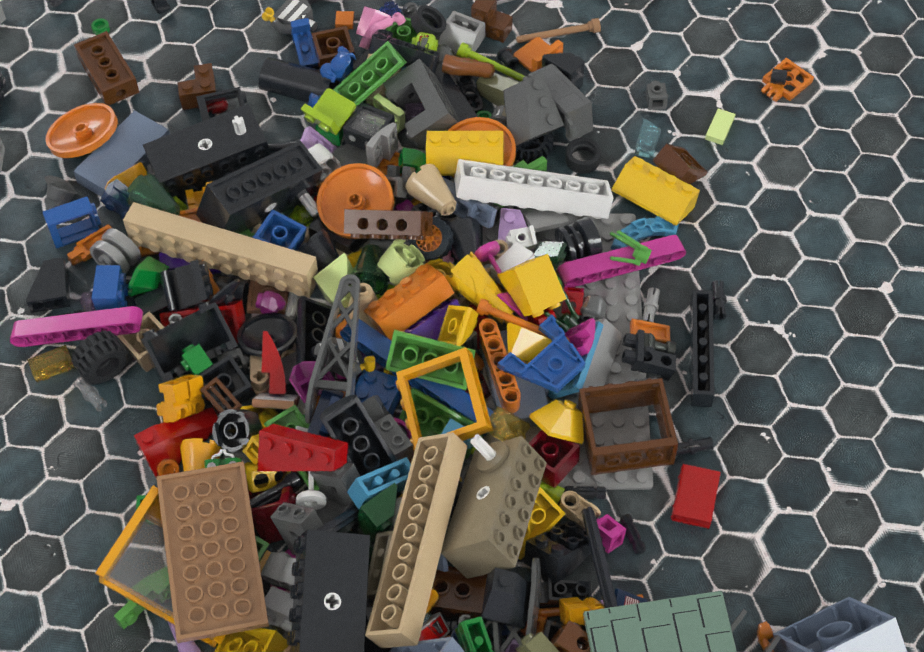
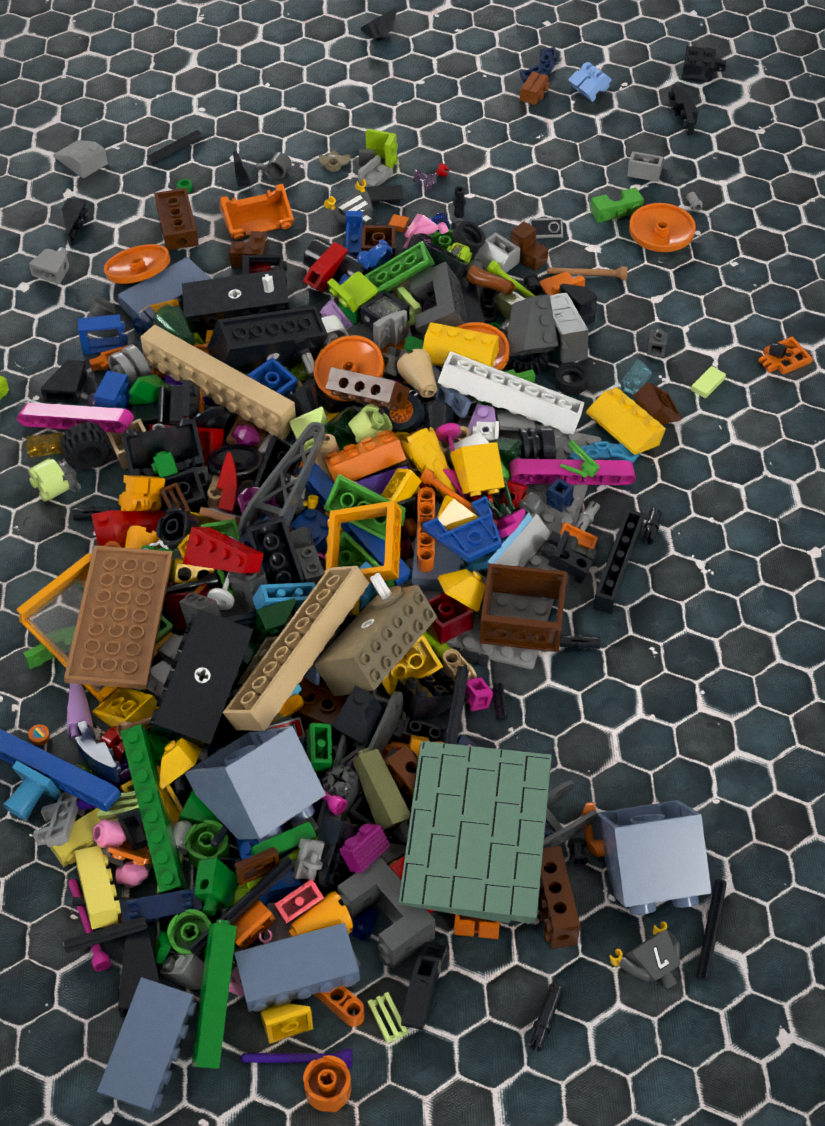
camera: 15 degrees right, 5 degrees down
(71, 405) = (48, 479): none -> yellowish green brick
(116, 435) = (86, 513): none -> black pin
(191, 42) = (257, 213): none -> orange windscreen
(288, 89) = (325, 267): none -> red slope
(507, 425) = (412, 575): clear yellow bracket -> none
(619, 290) = (560, 495): none -> dark blue brick
(695, 496) = (569, 684): red piece -> none

